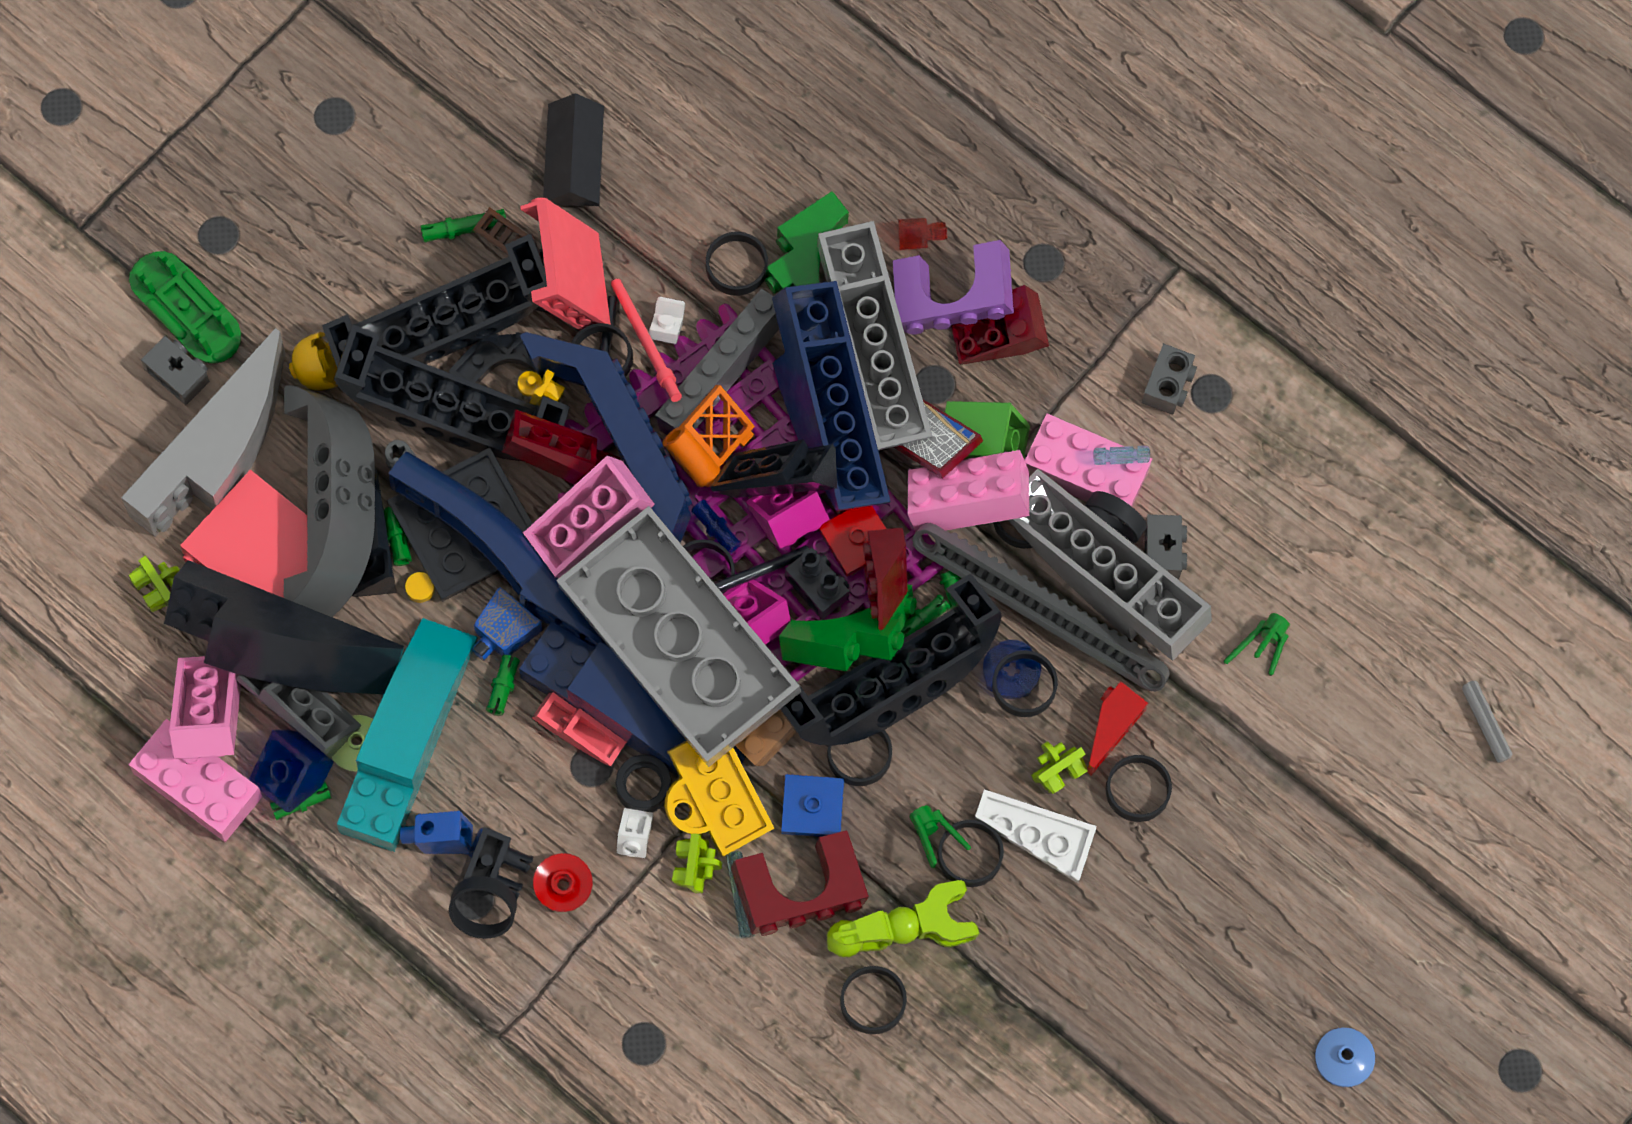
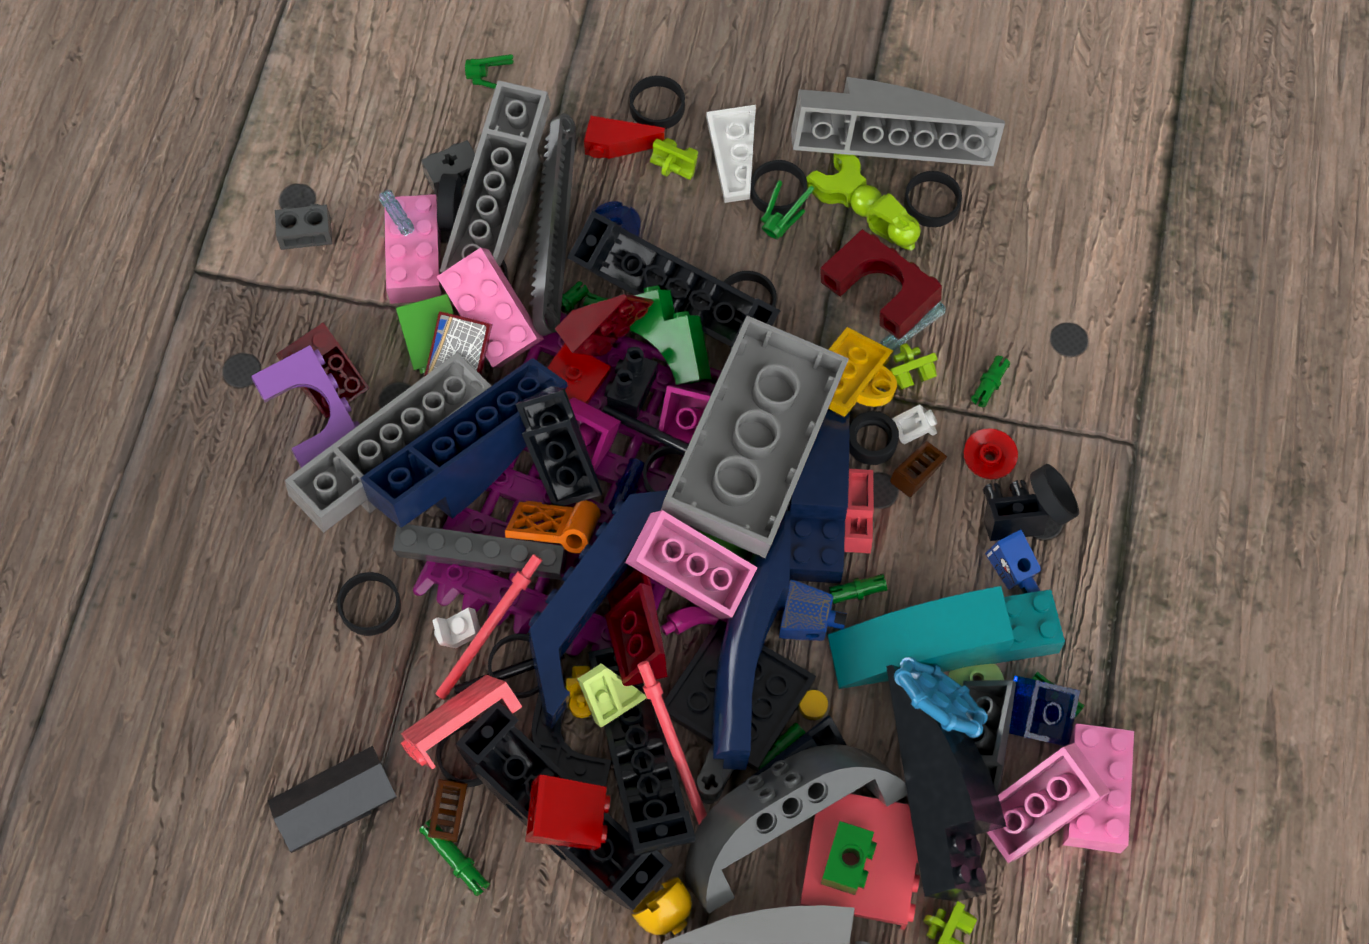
camera: 115 degrees left, 5 degrees down
(252, 506) = (848, 840): none -> green brick
(345, 684) = (941, 697): none -> dark azure plate
(430, 308) = (567, 813): none -> red slope
(488, 424) = (654, 692): none -> coral bar
(520, 394) = (607, 694): none -> yellowish green wing
(576, 805) = (909, 482): none -> reddish brown slope
(639, 933) = (990, 381): none -> green pin
(799, 239) = (319, 554): green arch -> none
(812, 805) = (810, 311): blue plate -> none
(915, 233) = (265, 472): clear red plate -> none
(974, 988) = (894, 123): none -> light grey slope
(1024, 654) = (627, 181): black tyre -> none

